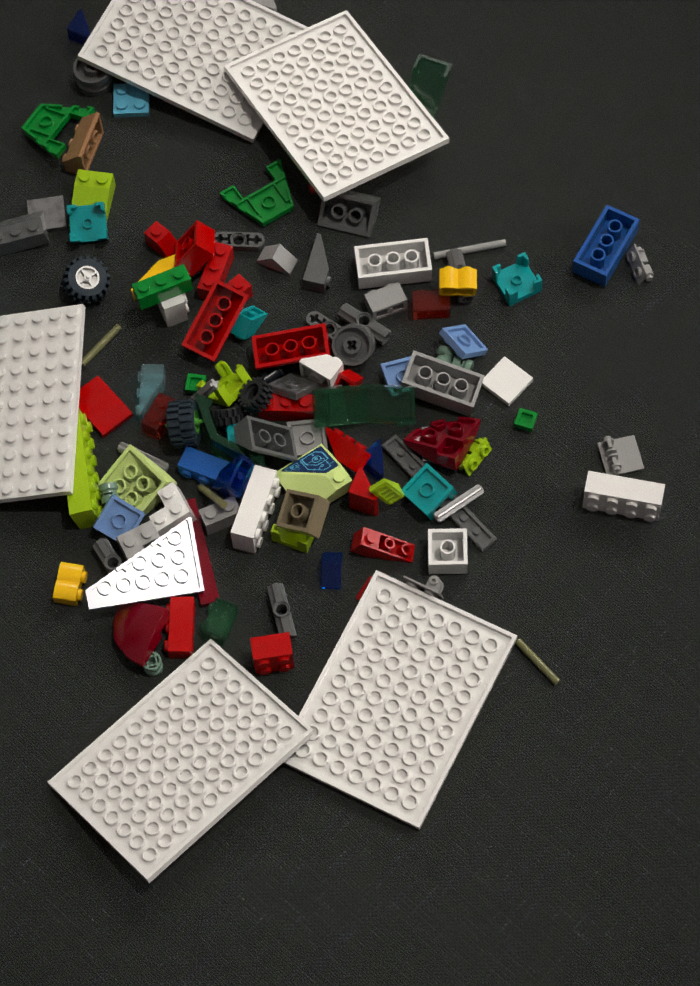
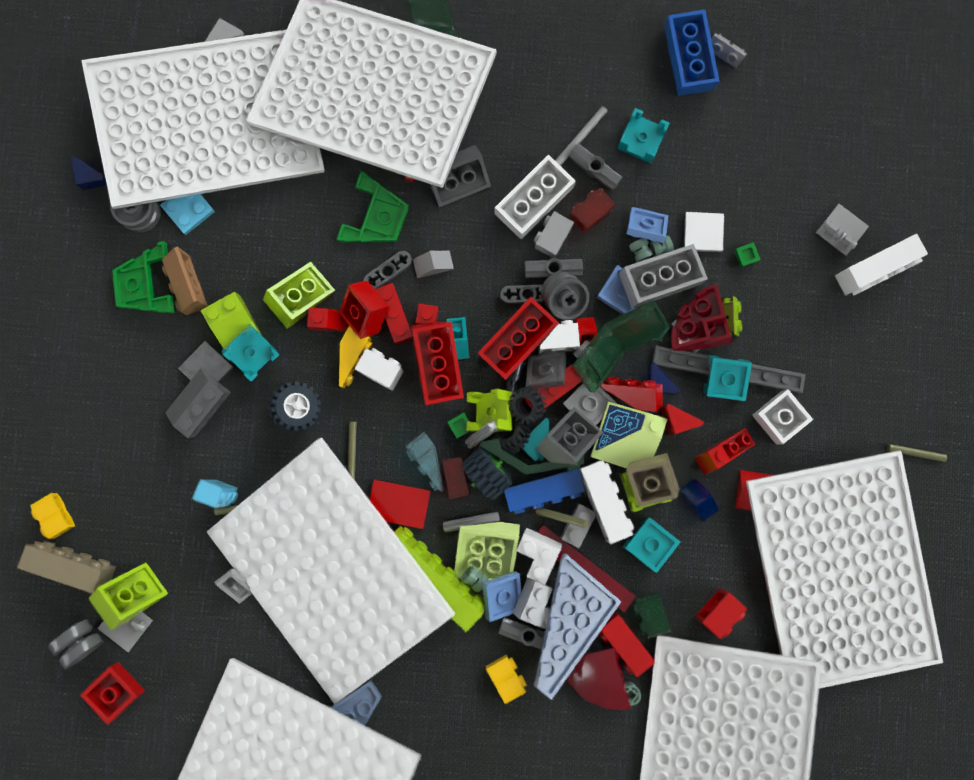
camera: 45 degrees left, 20 degrees up
(153, 205) = (297, 293): none -> lime slope
(162, 287) = (374, 371): green brick -> none
(234, 476) = (572, 493): clear blue slope -> none
(263, 567) = (651, 544): none -> teal panel
(280, 602) = (703, 576): dark grey piece -> none
(317, 271) = (476, 248): dark grey slope -> none
(387, 491) = (701, 406): lime slope -> none
(433, 587) = (796, 460): light grey hinge -> none
(457, 281) = (606, 175): yellow brick -> none
(458, 503) = (757, 367): light grey axle -> none

